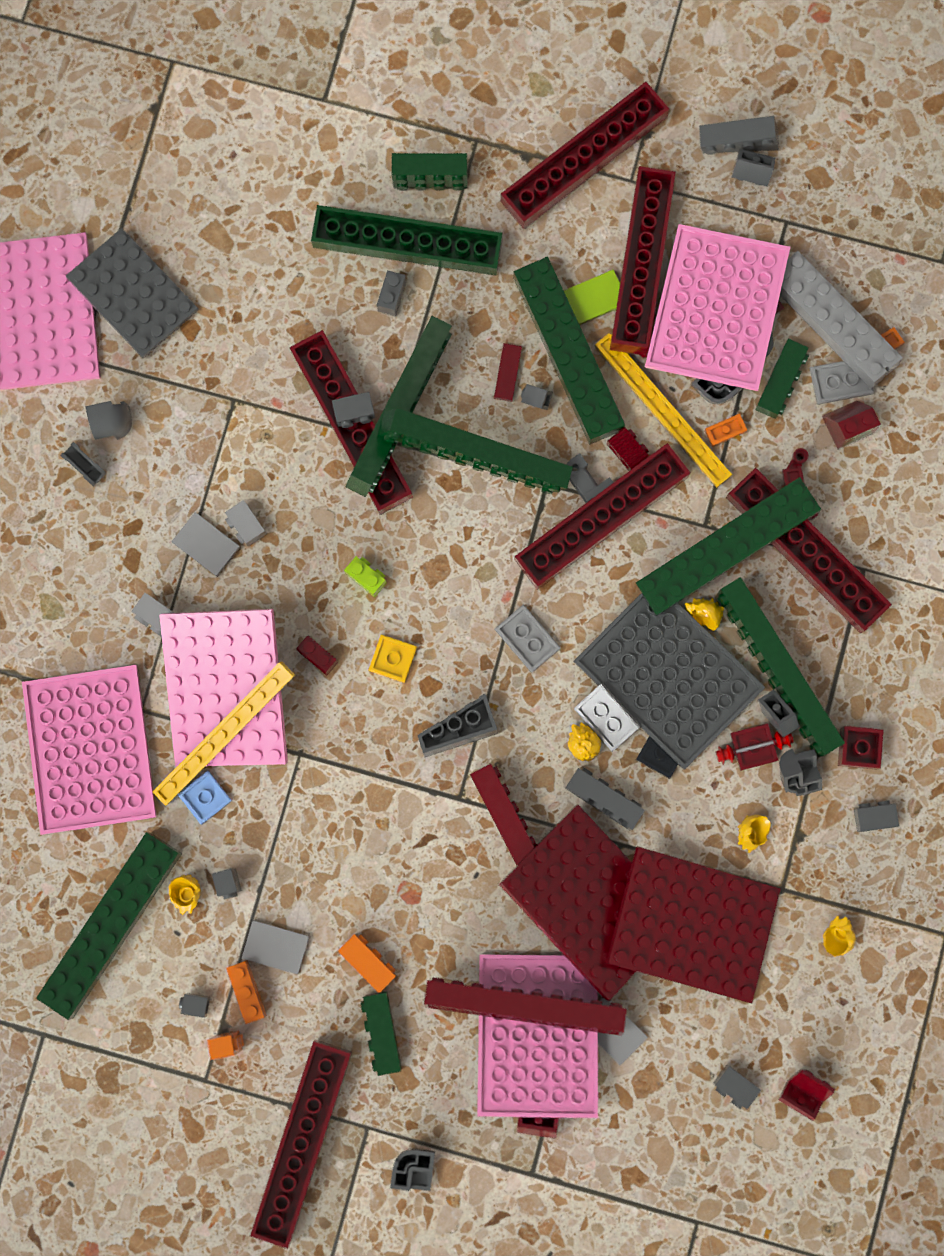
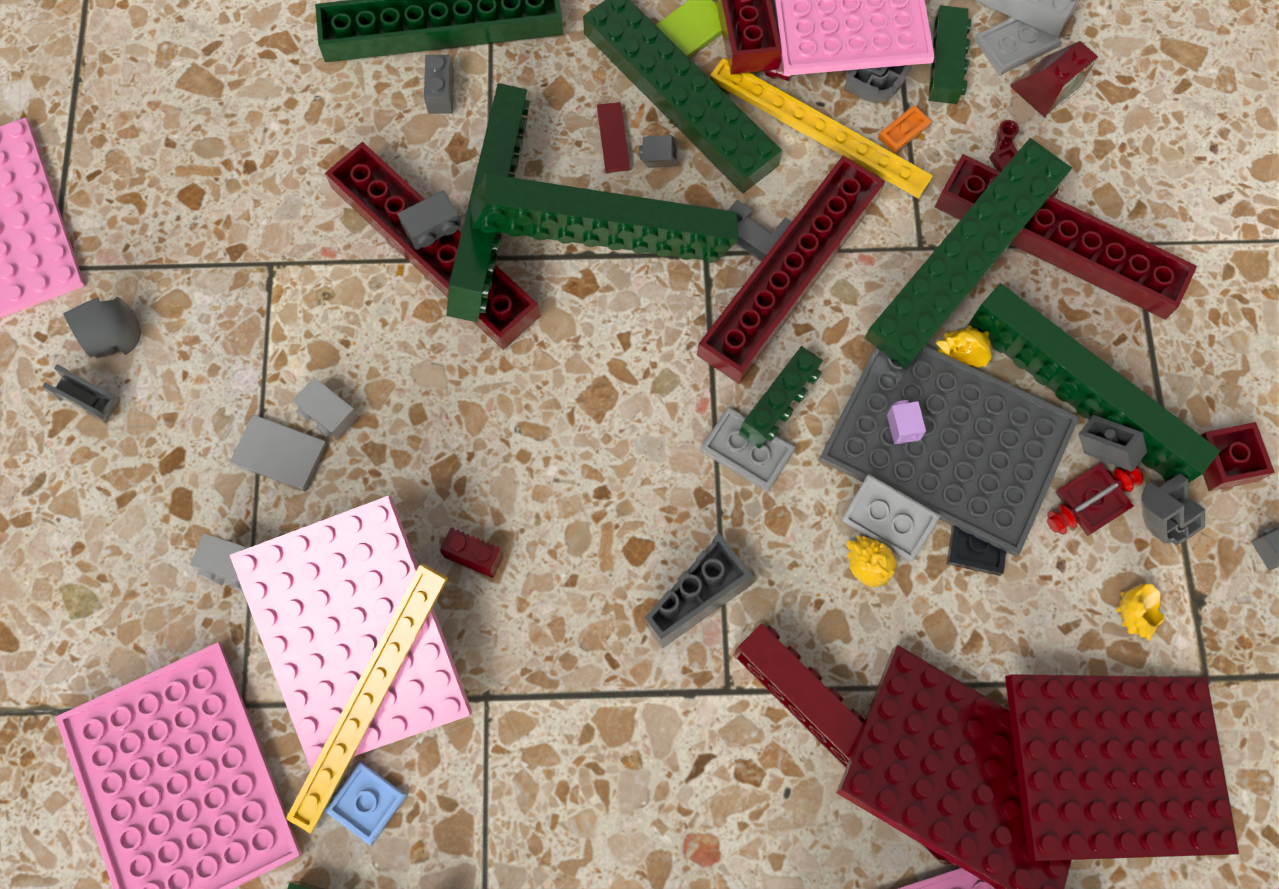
camera: 25 degrees left, 10 degrees down
(132, 293) = (102, 170): dark grey plate -> none
(364, 576) = (507, 429): lime brick -> none
(392, 658) = (576, 528): yellow tile -> none
(560, 610) = (780, 397): none -> dark green brick
(605, 799) = (931, 628): dark grey wedge -> none
(627, 448) = (792, 181): dark red brick -> none
(640, 655) = (906, 422): none -> lavender brick

